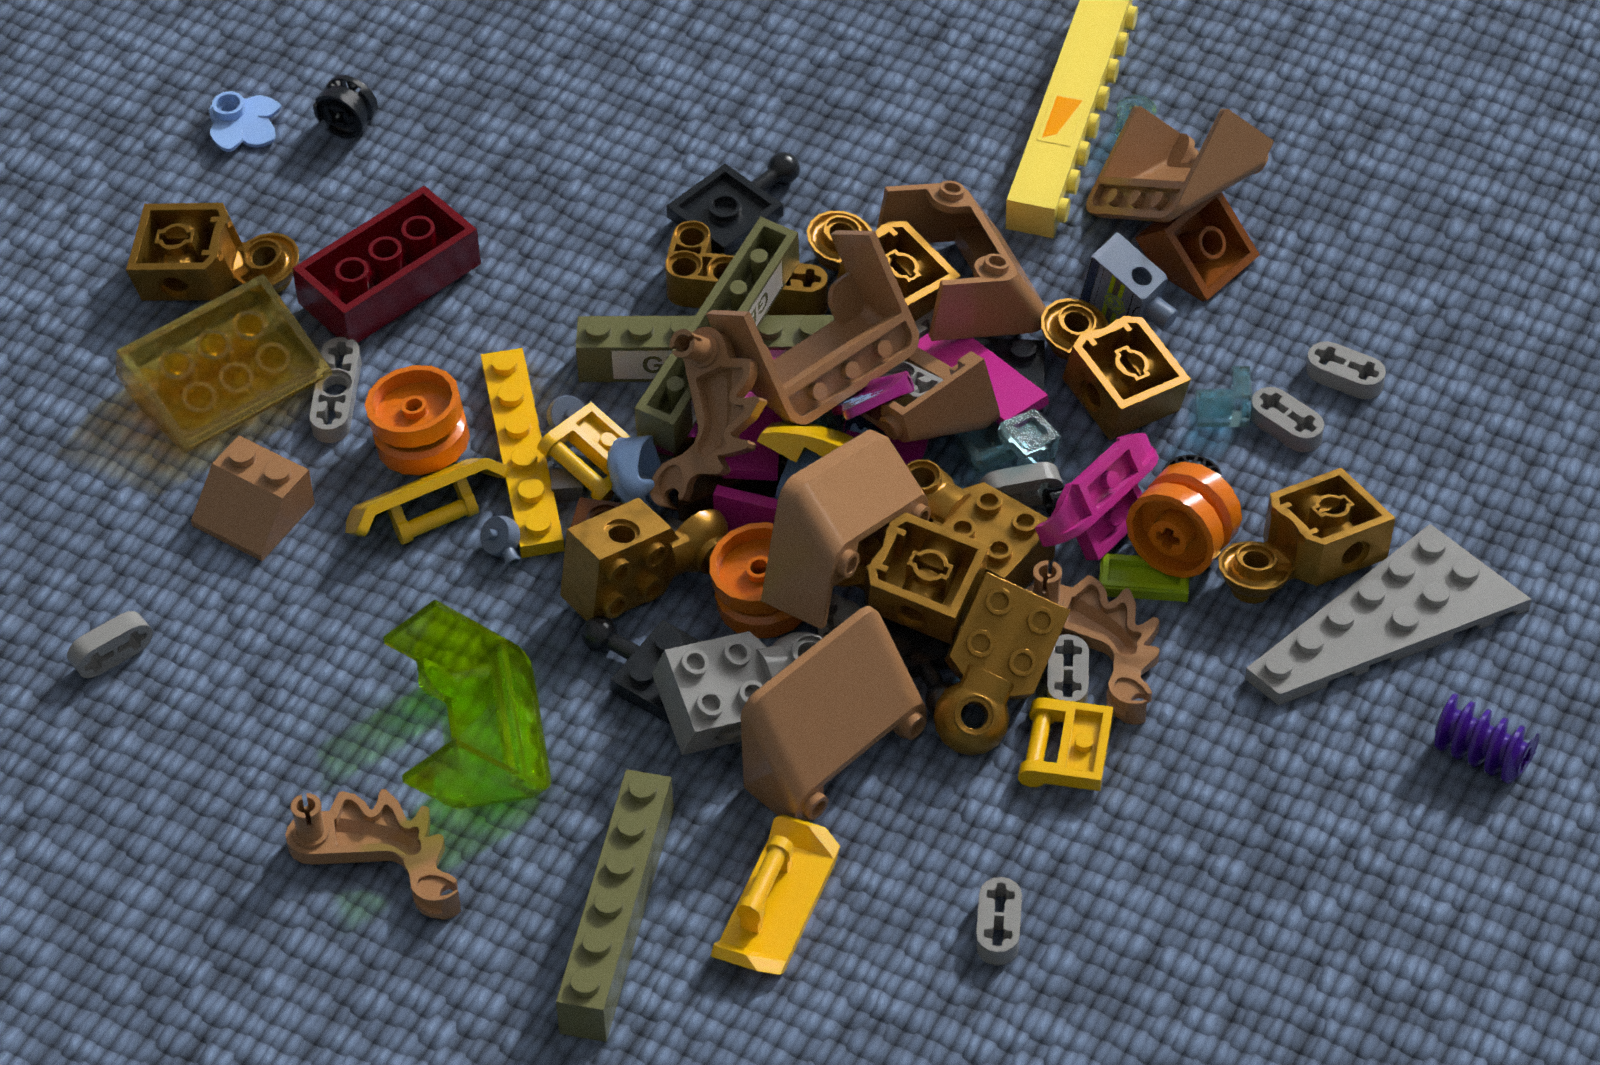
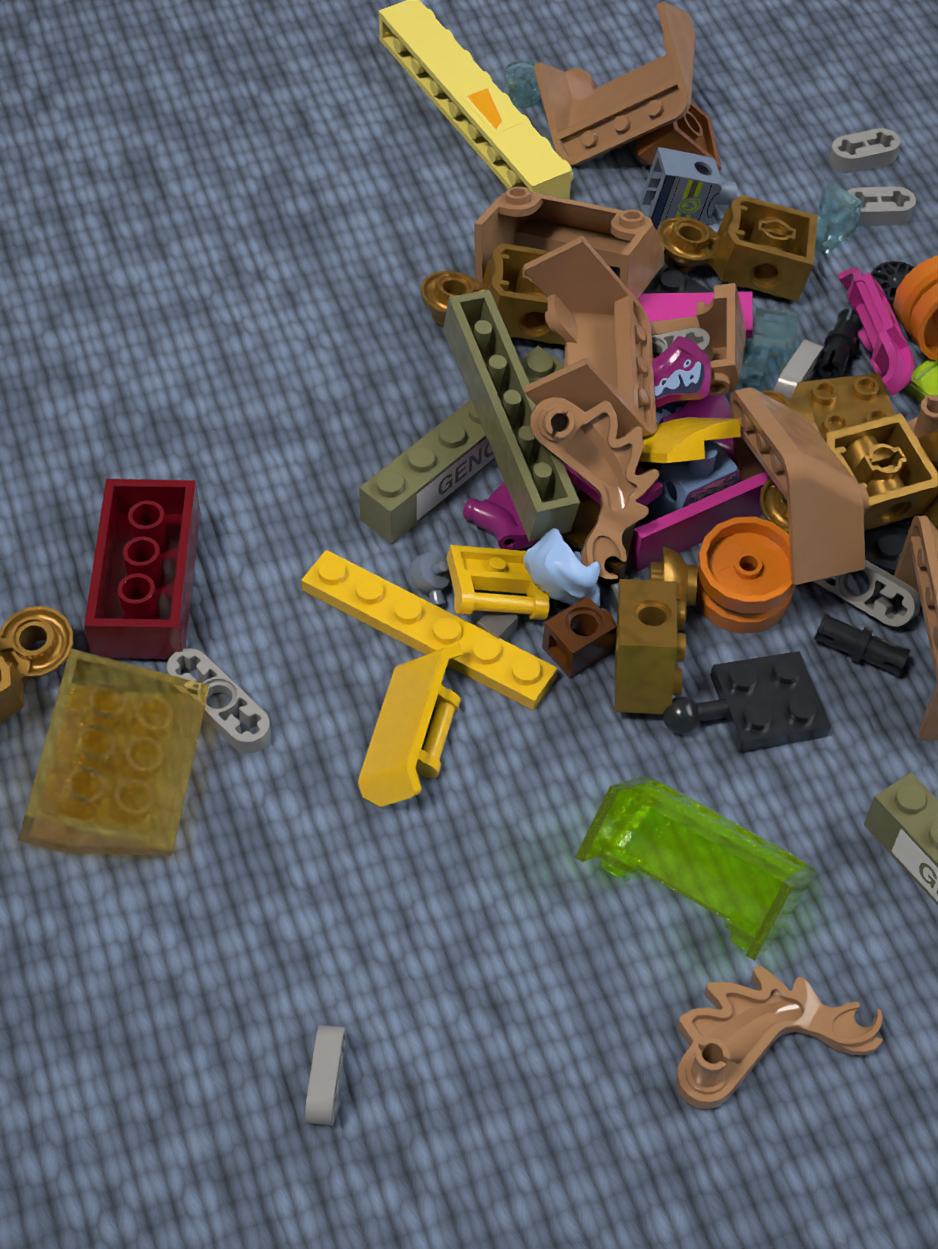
camera: 50 degrees left, 5 degrees up
(252, 498) = (280, 844): medium nougat slope -> none
(417, 420) = (335, 666): orange wheel -> none
(501, 538) = (512, 706): sand blue piece -> none
(695, 271) = (399, 393): pearl gold beam -> none
(713, 679) = (848, 665): light grey brick -> none
(733, 203) = (335, 333): black plate -> none

